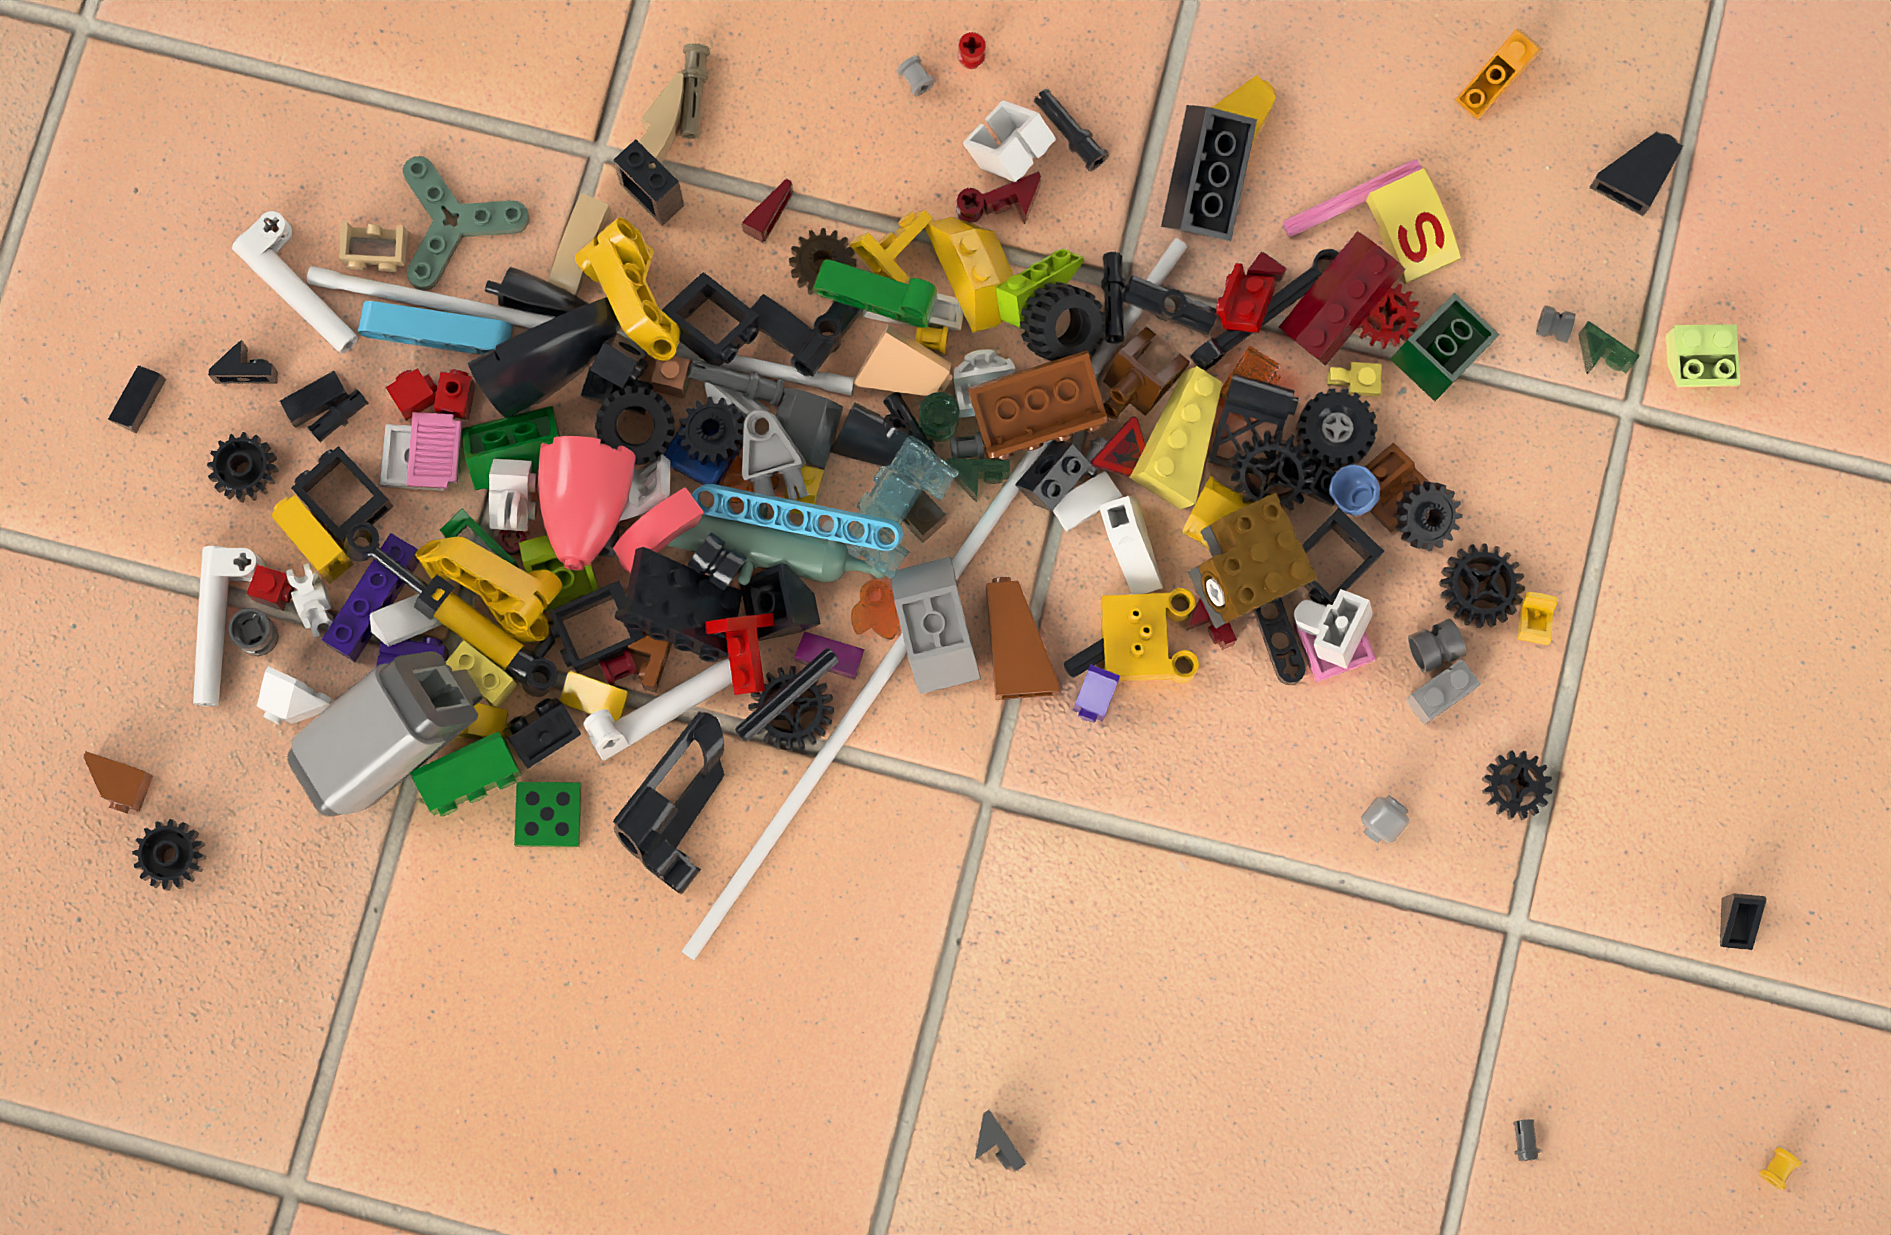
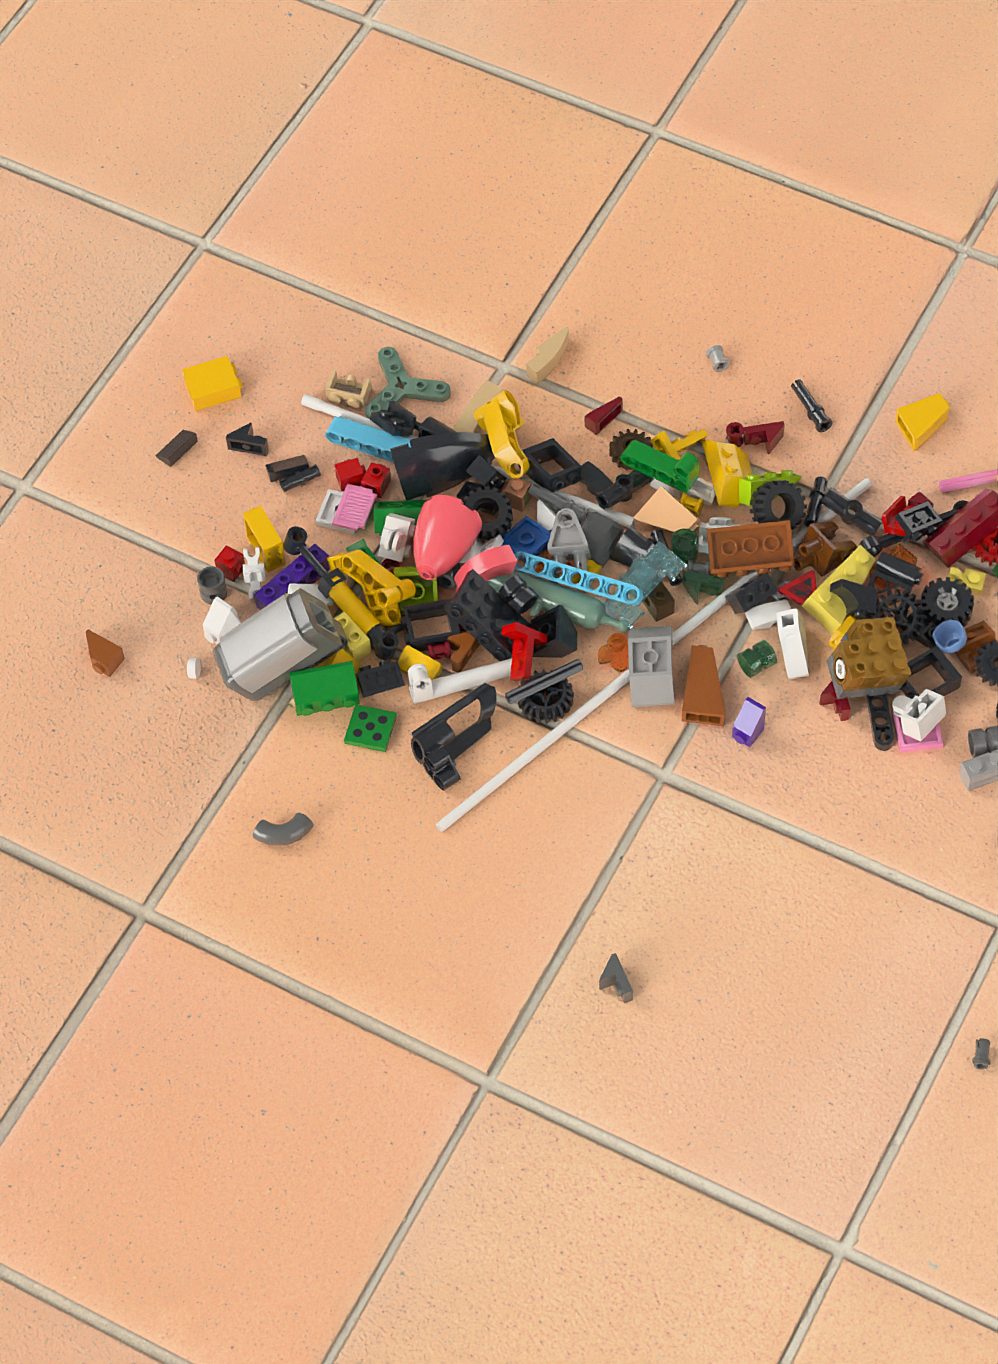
camera: 20 degrees right, 20 degrees down
(157, 842) = (113, 704): black gear -> none
(162, 277) = (212, 383): none -> yellow brick
(217, 569) = (201, 547): white axle -> none
(230, 456) = (231, 494): black gear -> none
(259, 249) = (277, 380): white axle -> none
(261, 775) = (193, 668): none -> white tile
(369, 512) = (287, 502): black window -> none
(457, 289) = (395, 420): none -> black bracket
(463, 1021) = (283, 833): none -> dark grey cylinder
(652, 188) = (531, 382): black window -> none
(694, 78) = (576, 334): dark tan pin -> none
(710, 416) = (534, 526): black gear -> none
(848, 655) = (586, 678): magenta slope -> none
(967, 41) = (757, 347): red bush -> none
(1021, 136) = (774, 398): white piece -> none
(1084, 580) = (755, 659): none -> clear green wheel
(1136, 638) = (784, 699): yellow piece -> none
(1209, 172) = (895, 440): black slope -> none
(1212, 462) = (858, 598): none -> black arch
(1272, 307) = (918, 522): none -> black bracket
(1385, 819) = (927, 838): light grey head -> none

